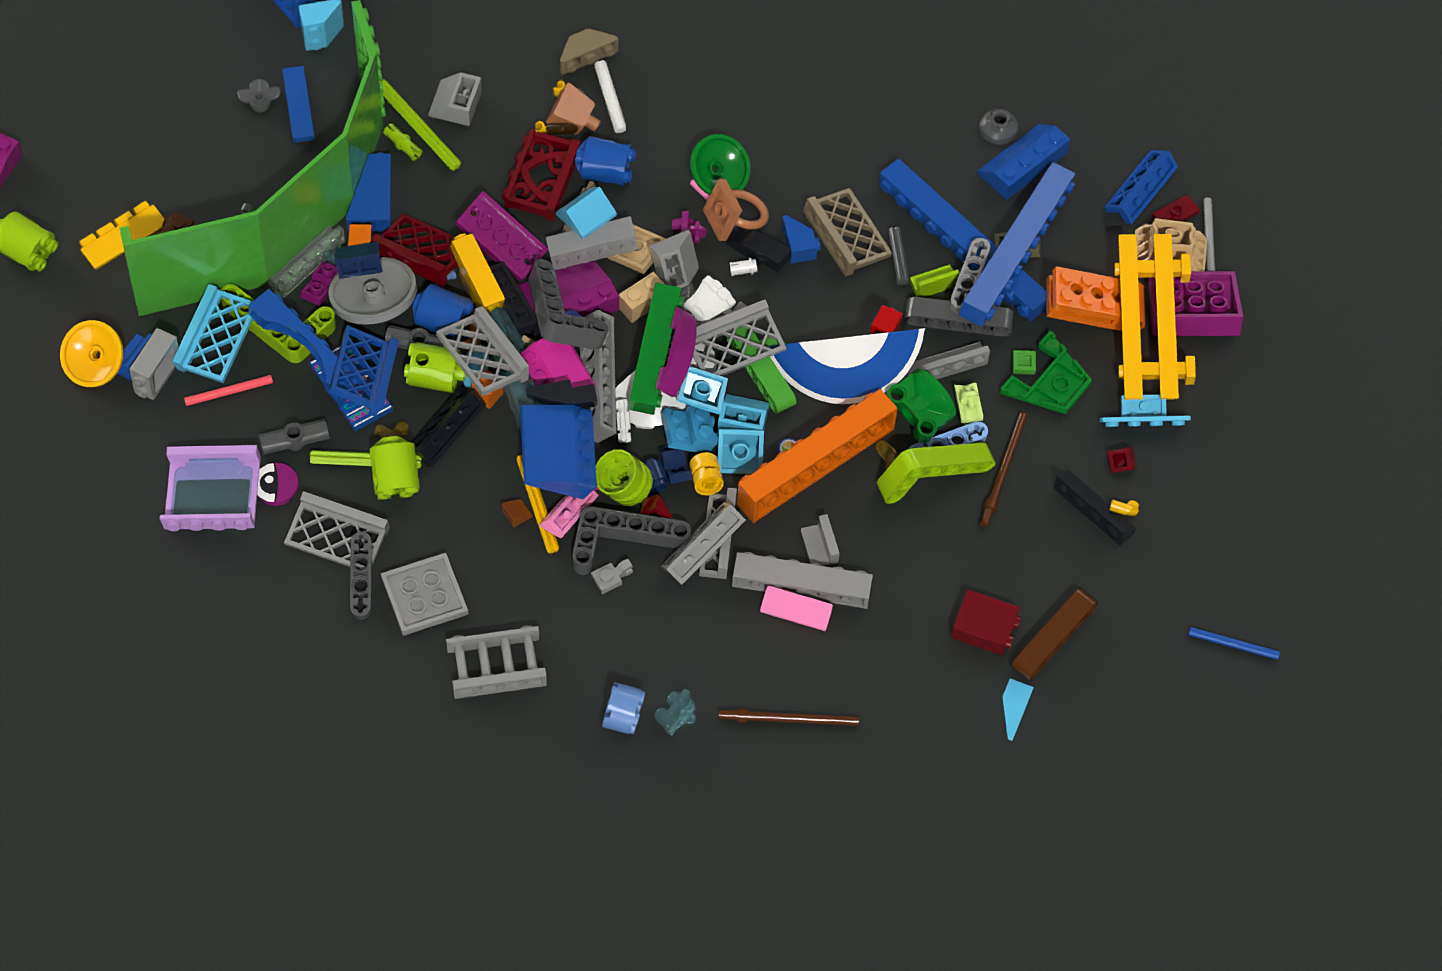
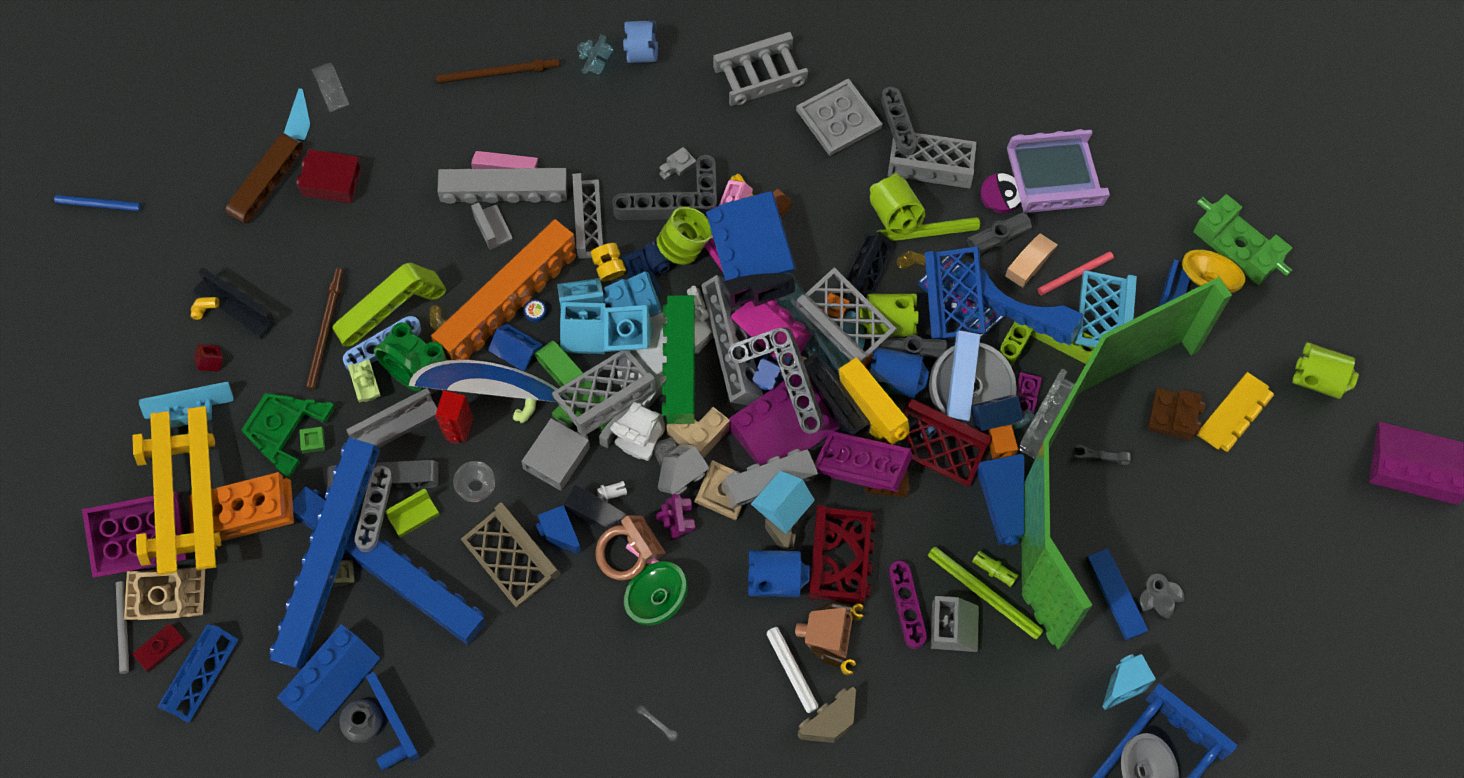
camera: 170 degrees right, 5 degrees up
(32, 369) = (1224, 226): none -> bright green brick
(154, 364) = (1151, 269): light grey window -> none
(269, 406) = (1030, 260): none -> light nougat slope
(381, 289) = (963, 376): none -> light blue tile
(492, 128) = (907, 604): none -> magenta beam
(655, 507) = (649, 221): dark red slope -> none
(680, 355) = (651, 348): magenta slope -> none
(703, 542) = (599, 187): light grey fence -> none
(728, 69) = (672, 735): none -> clear hinge
(793, 305) = (556, 454): none -> light grey brick
(809, 413) = (514, 346): none -> blue panel
(875, 286) = (470, 472): none -> clear piece
(898, 256) = (453, 537): dark grey axle -> none
(961, 98) = (406, 748): none -> blue piece
(977, 727) = (330, 86): none -> clear slope

